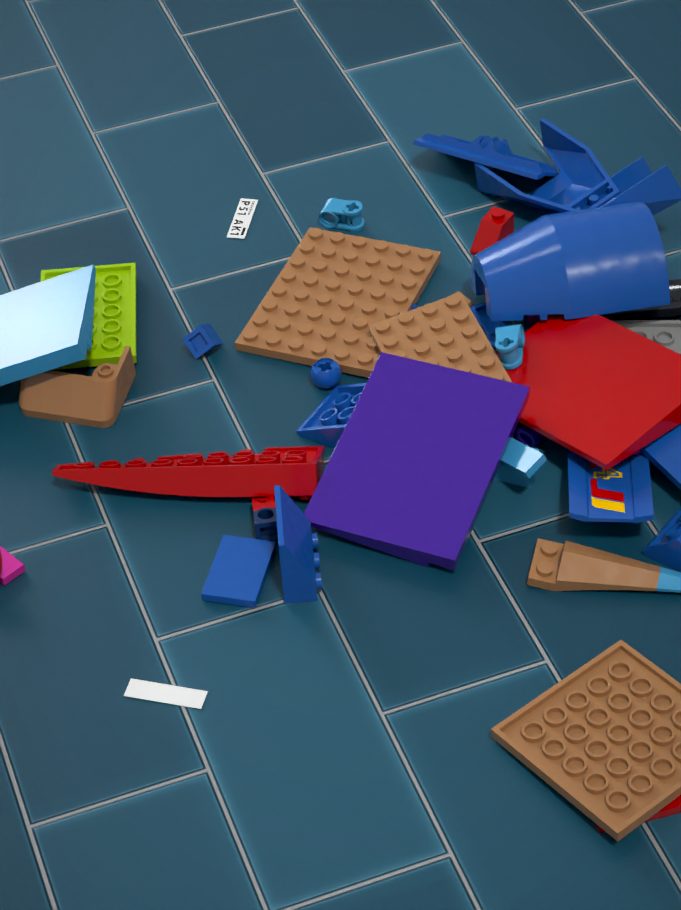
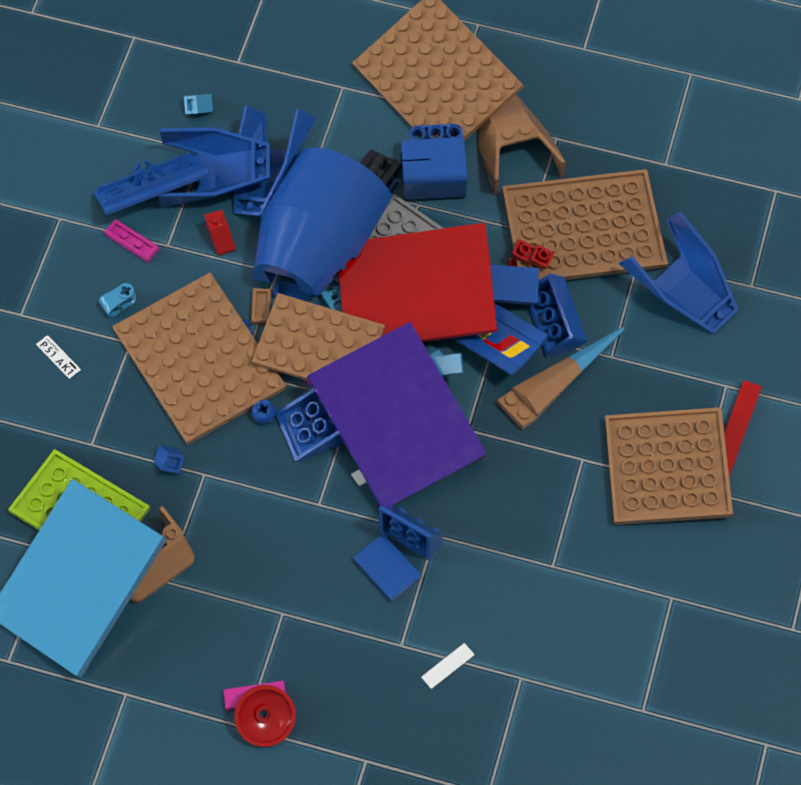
camera: 55 degrees left, 20 degrees up
(218, 475) = (309, 514): red wedge -> none
(265, 518) = (360, 526): dark blue leg -> none
(418, 191) = (132, 241): none -> dark pink tile
(510, 344) = (348, 301): dark azure piece -> none
(616, 145) = (198, 103): none -> dark azure panel

